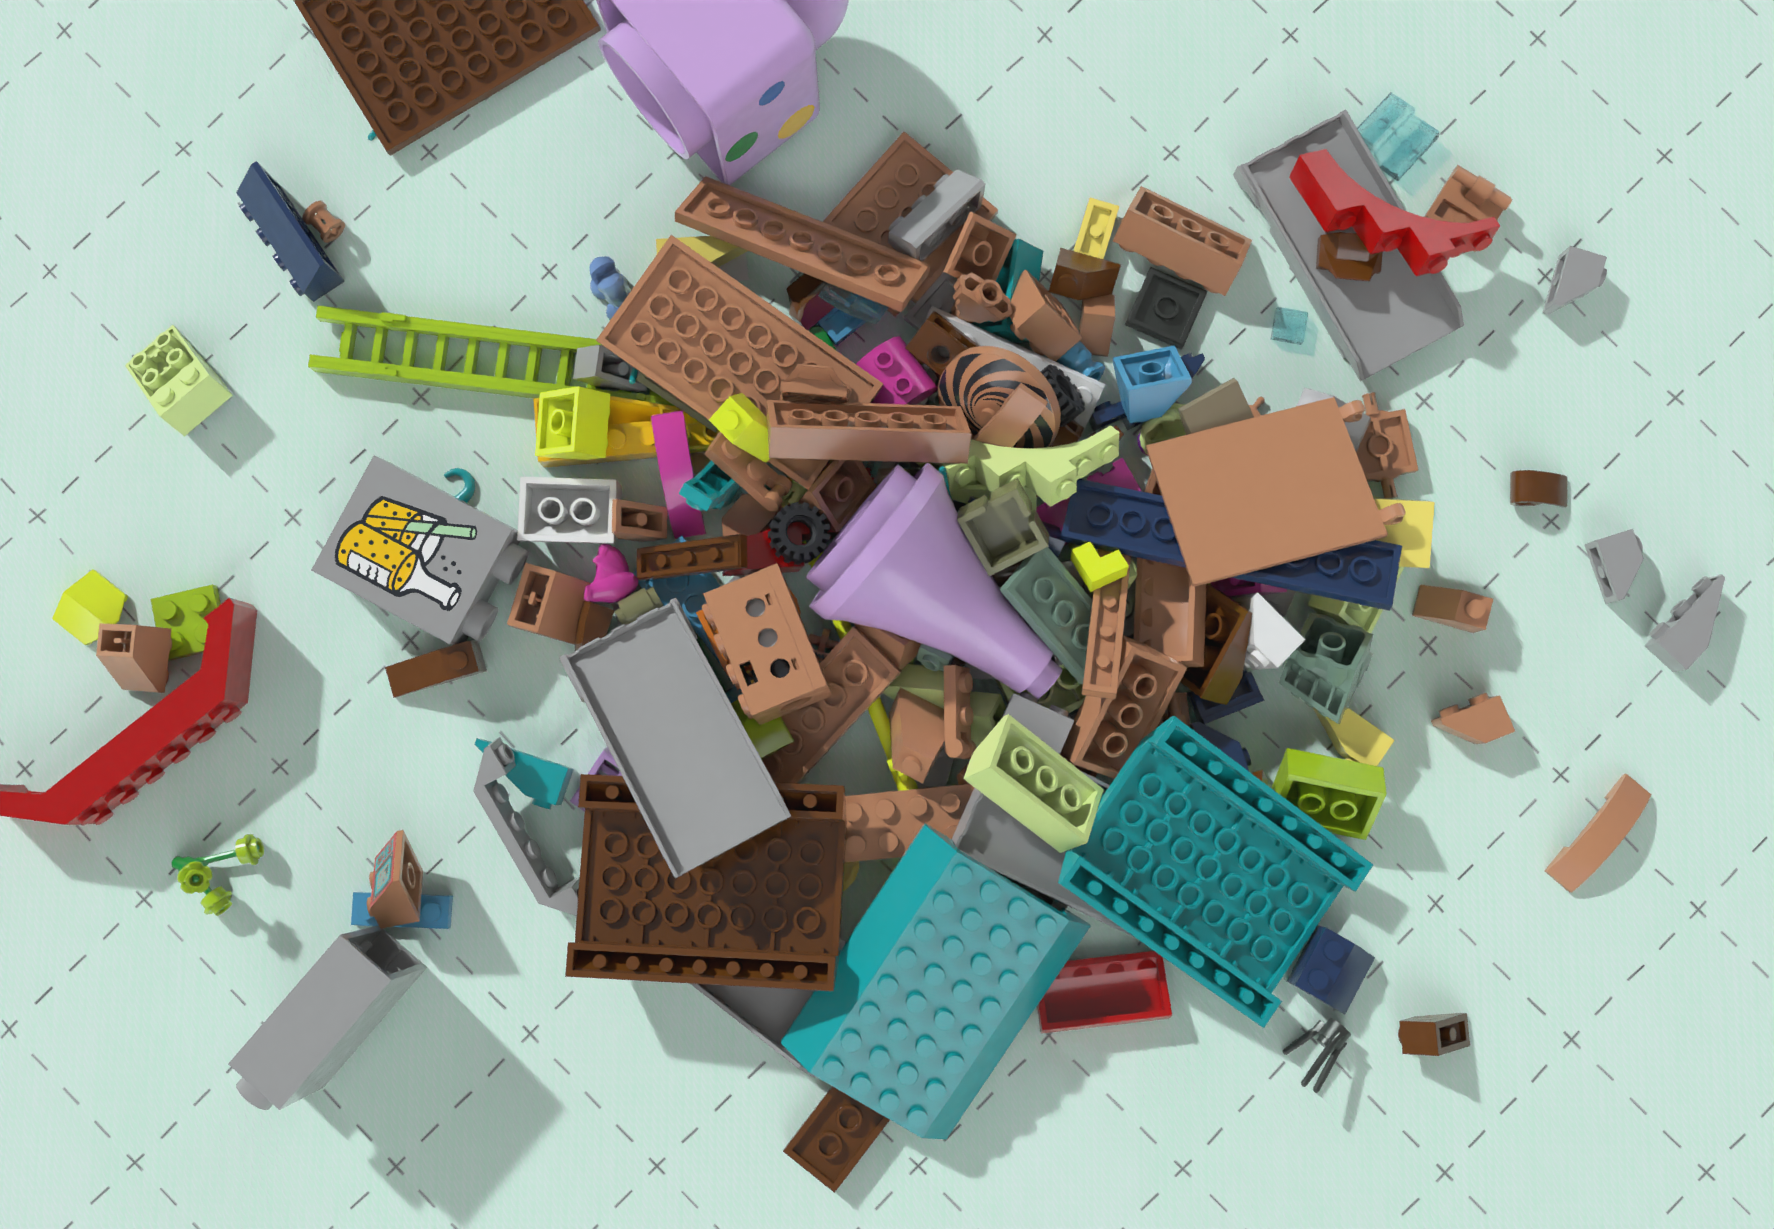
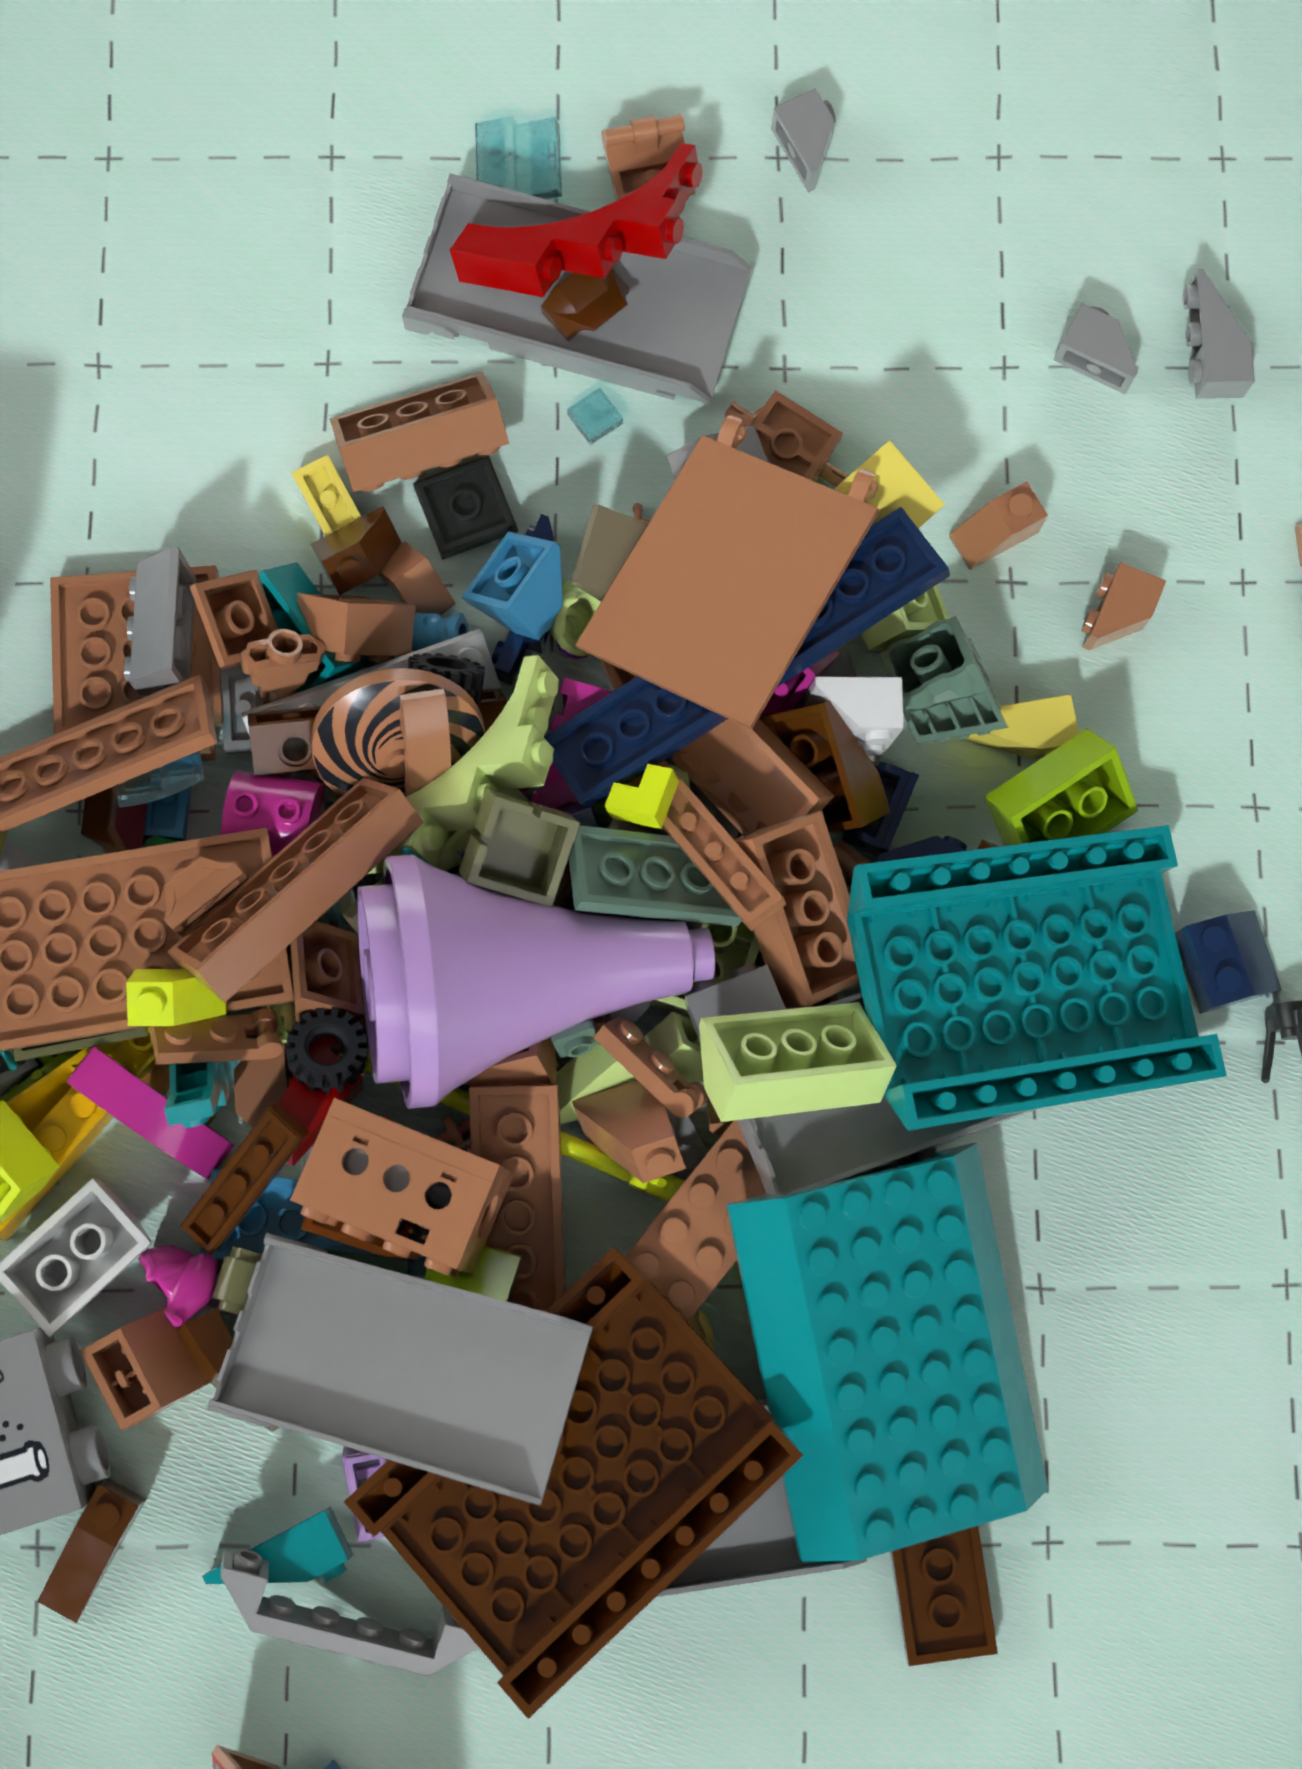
camera: 50 degrees left, 5 degrees down
(638, 521) = (155, 1196): nougat slope -> none
(1106, 993) = (1053, 1193): red slope -> none
(1537, 488) = (962, 348): reddish brown panel -> none

